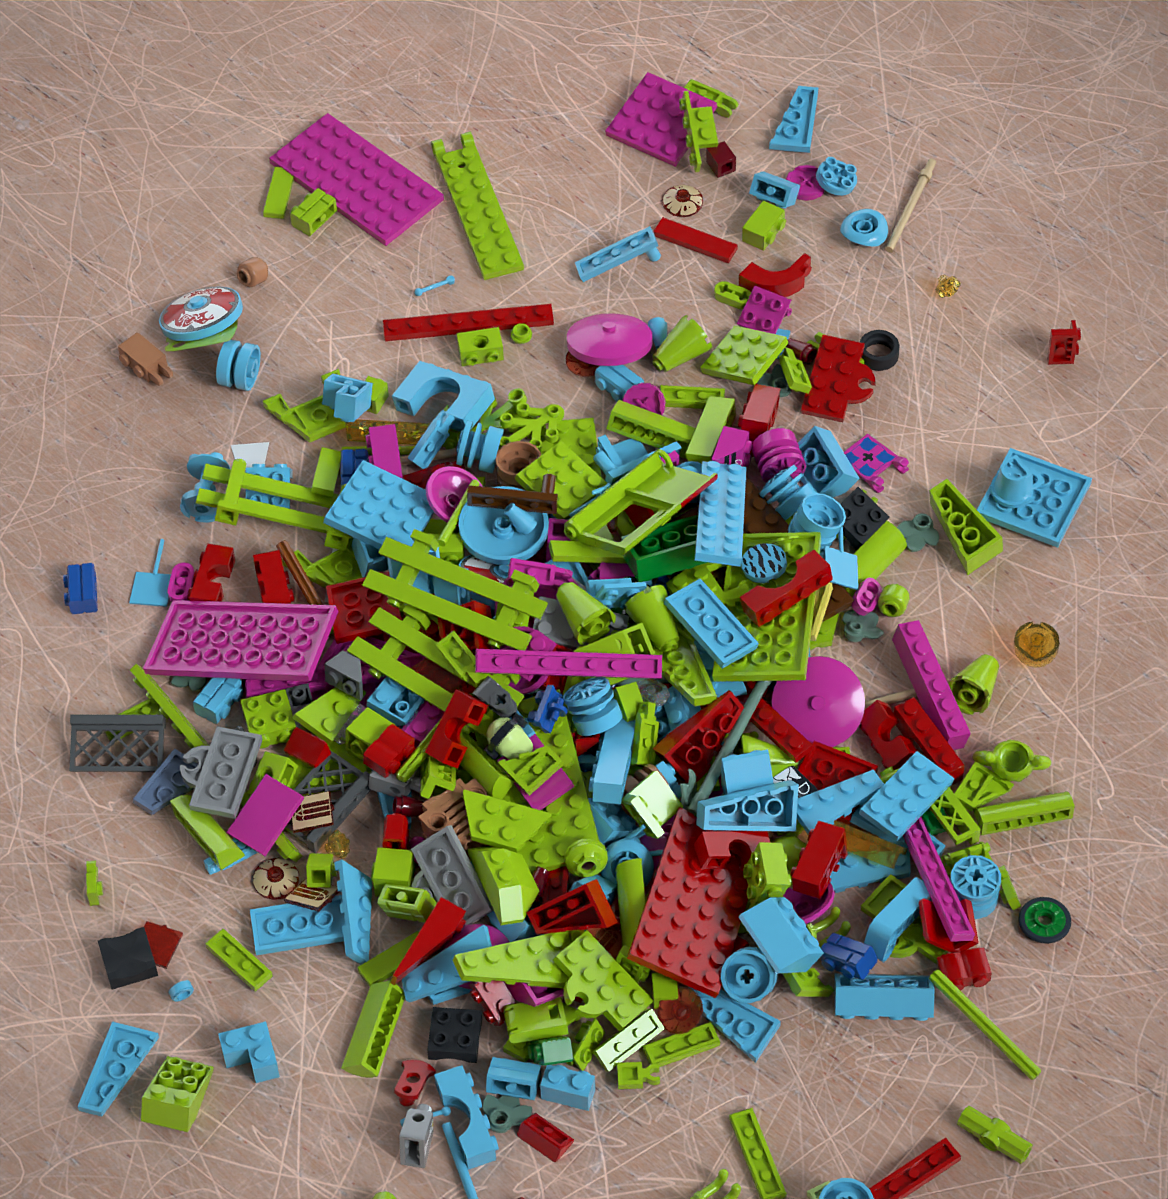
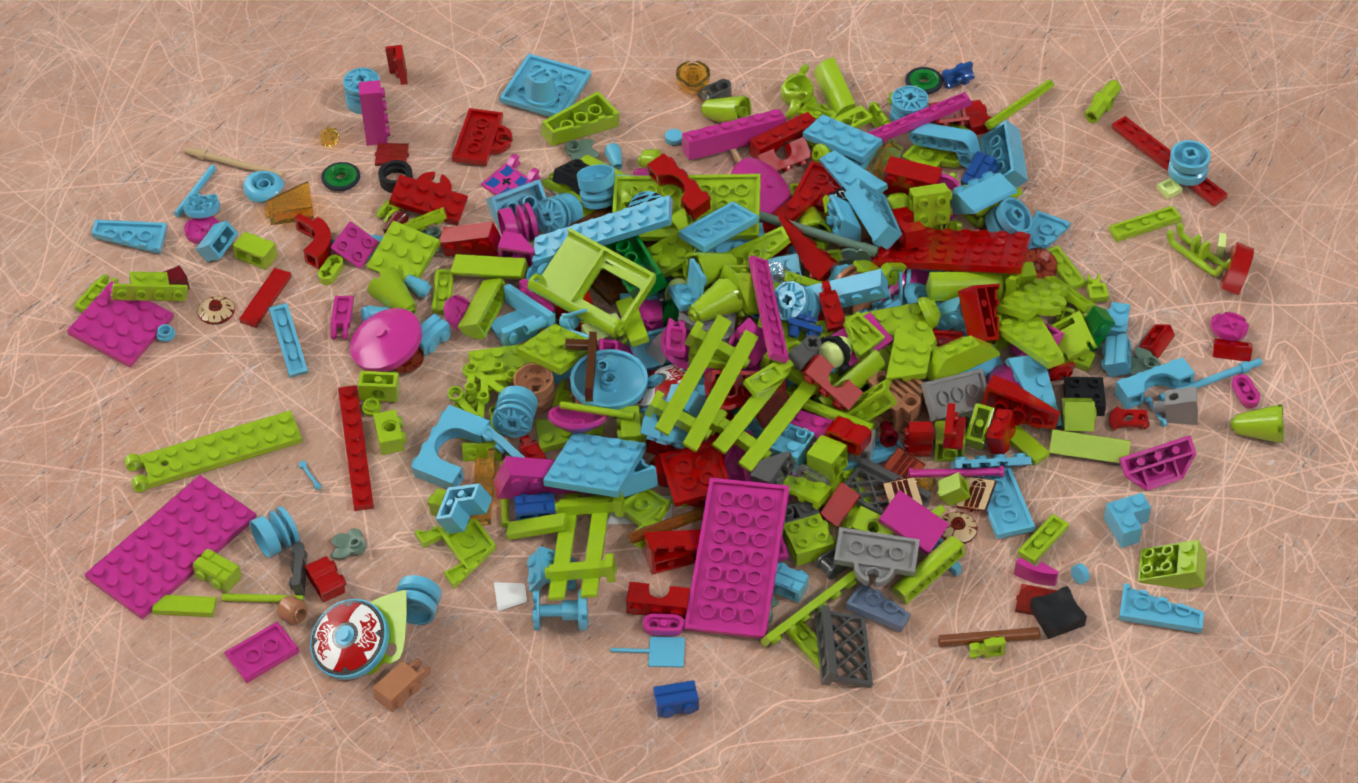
camera: 95 degrees left, 5 degrees down
(112, 888) = (979, 637): none -> dark orange axle
(186, 948) = (1040, 575): none -> dark pink slope
(210, 254) = (261, 652): none -> dark pink tile
(277, 252) = (270, 598): none -> lime bar
(288, 297) = (325, 578): none -> red brick
(305, 276) = (298, 580): none -> dark grey hinge
(329, 1091) = (1159, 464): none -> dark pink wedge
(335, 318) = (348, 544): none -> sand green plate
(344, 826) = (964, 472): none -> dark pink bar
(347, 249) = (275, 531): none -> medium azure wheel
(363, 825) = (901, 461): none -> clear red piece
(385, 857) = (954, 429): none -> red bracket
(394, 924) = (1001, 431): none -> red brick
(412, 1012) = (1078, 414): none -> lime head
(541, 334) = (379, 385): none -> lime brick
(581, 740) = (831, 308): none -> red hinge
(647, 157) = (165, 333): none -> medium azure plate
(657, 305) = (342, 315): none -> dark pink hinge
(693, 371) = (418, 286): none -> medium azure cone
(834, 256) = (290, 203): none -> clear yellow slope
(877, 177) = (199, 185): none -> medium azure bar
(877, 310) = (330, 174): none -> green wheel
(905, 564) = (614, 155): none -> medium azure cone
(922, 349) = (391, 151): none -> clear red piece
(941, 629) = (673, 137): none -> medium azure tile
(943, 431) = (481, 137): none -> red plate
(960, 314) = (373, 112): none -> dark pink wedge
(1016, 677) = (716, 90): none -> dark grey piece
(1019, 311) = (351, 86): none -> medium azure wheel
(1048, 960) = (959, 75): none -> blue hips

